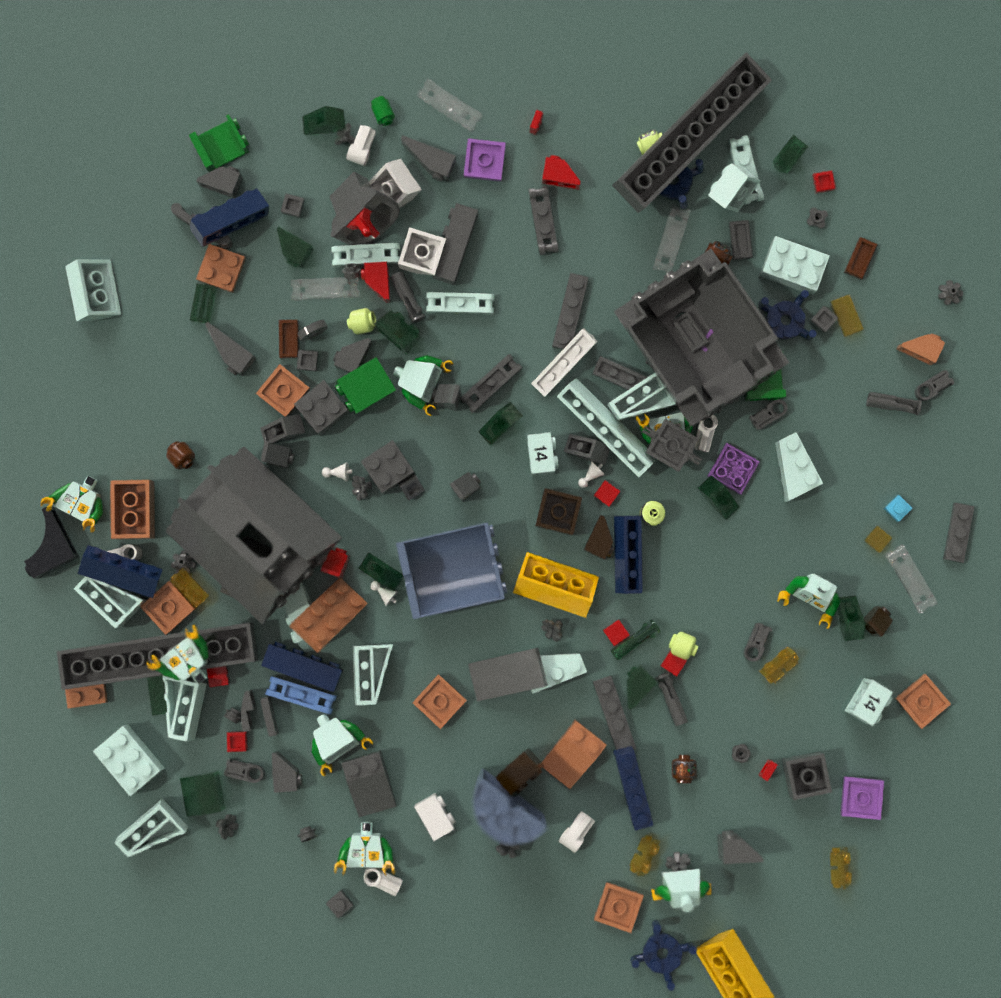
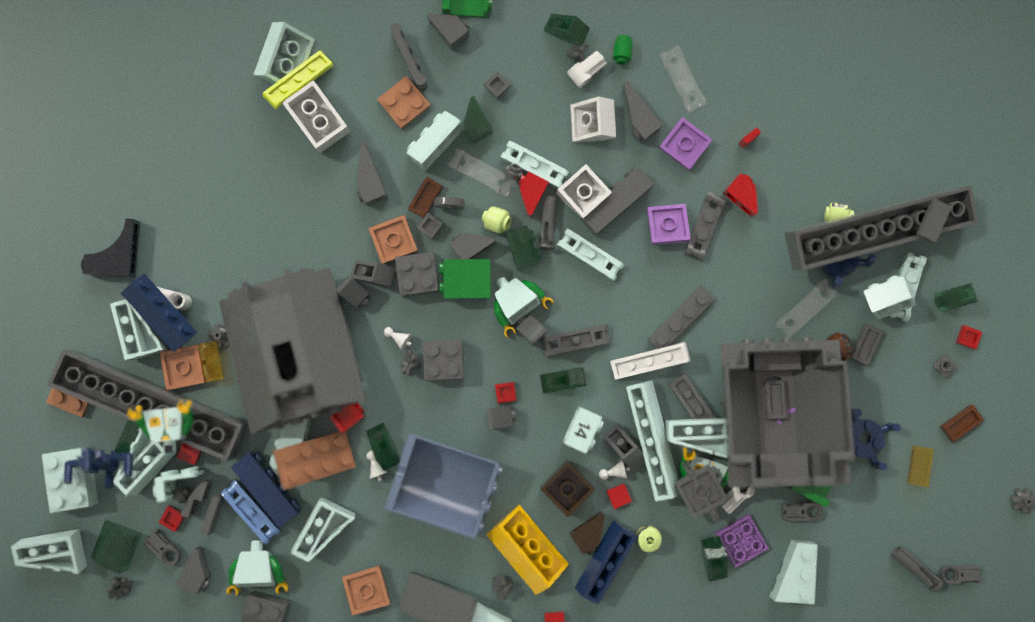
camera: 25 degrees right, 0 degrees up
(78, 501) = (161, 230): torso -> none
(117, 302) = (297, 79): none -> neon yellow tile
(132, 509) = (202, 265): nougat brick -> none
(144, 726) = (95, 460): none -> dark blue plate
(153, 324) = (316, 117): none -> white brick
(180, 455) = (272, 242): reddish brown head -> none
(193, 318) = (383, 120): clear green tile -> none
(214, 715) = (166, 483): none -> light aqua bracket
(229, 217) = (436, 63): dark blue brick -> none
(267, 284) = (434, 140): none -> light aqua slope
(361, 211) = (552, 125): dark grey piece -> none
(411, 487) = (453, 388): dark grey plate -> none
(458, 464) = (505, 392): none -> red tile
(511, 237) = (668, 224): none -> medium lavender plate
(731, 100) = (934, 220): none -> dark grey tile
(794, 265) = (901, 395): light aqua brick -> none
(824, 319) = (899, 458): dark grey plate -> none
(924, 348) = (972, 537): nougat slope -> none

